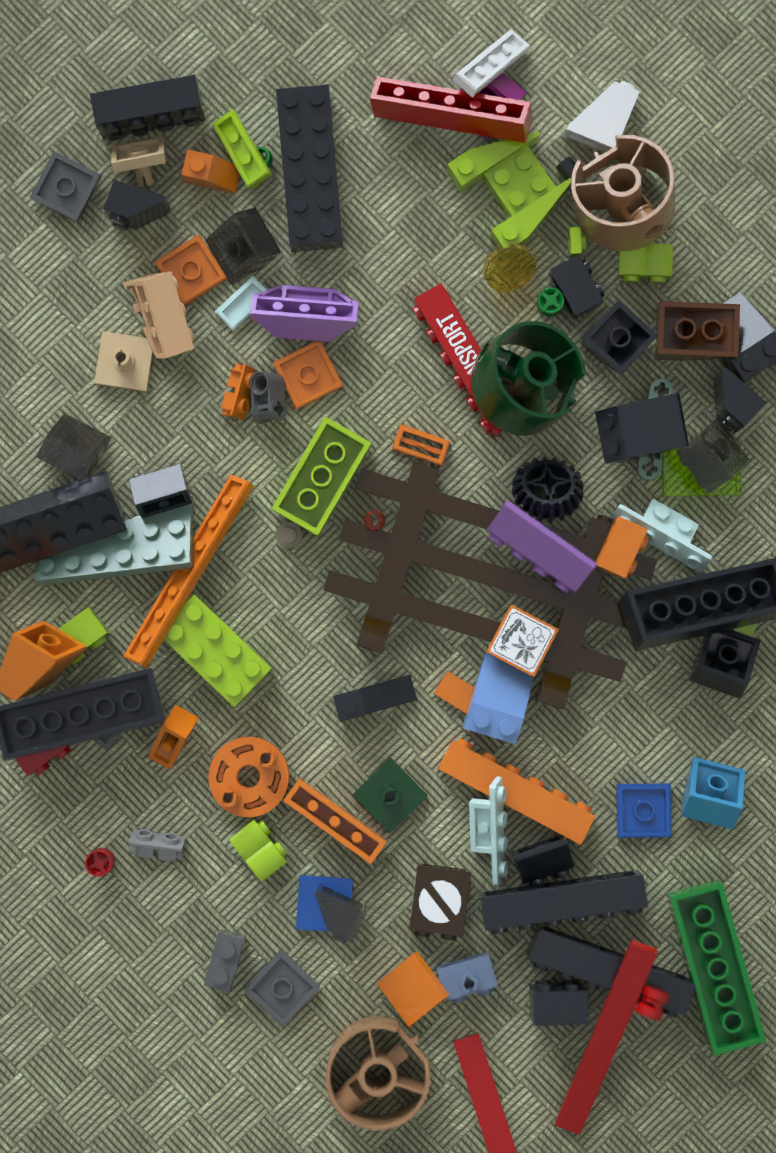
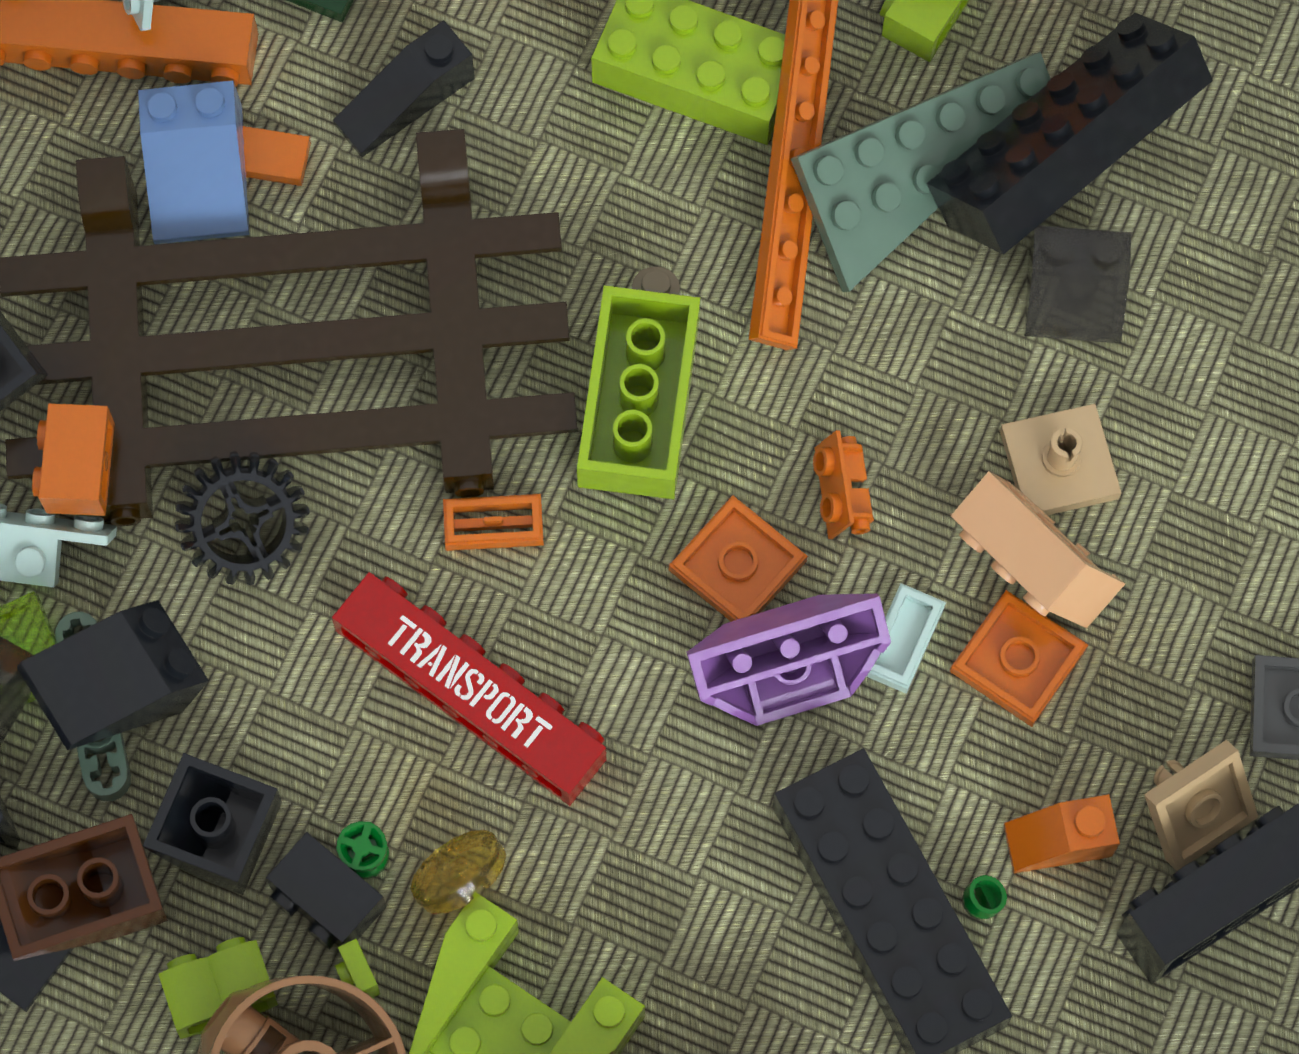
camera: 155 degrees right, 15 degrees down
(133, 206) = (1170, 711): black slope -> none
(160, 491) = (901, 269): brick -> none
(242, 149) = (1025, 896): lime tile -> none
(243, 245) = (946, 731): clear smoke slope -> none
(268, 395) = (790, 492): dark grey piece -> none
(369, 522) = (510, 354): clear red hinge -> none
(518, 399) = (377, 672): dark green animal -> none
(522, 640) = (190, 255): tile -> none
(540, 547) = (214, 404): medium lavender slope -> none

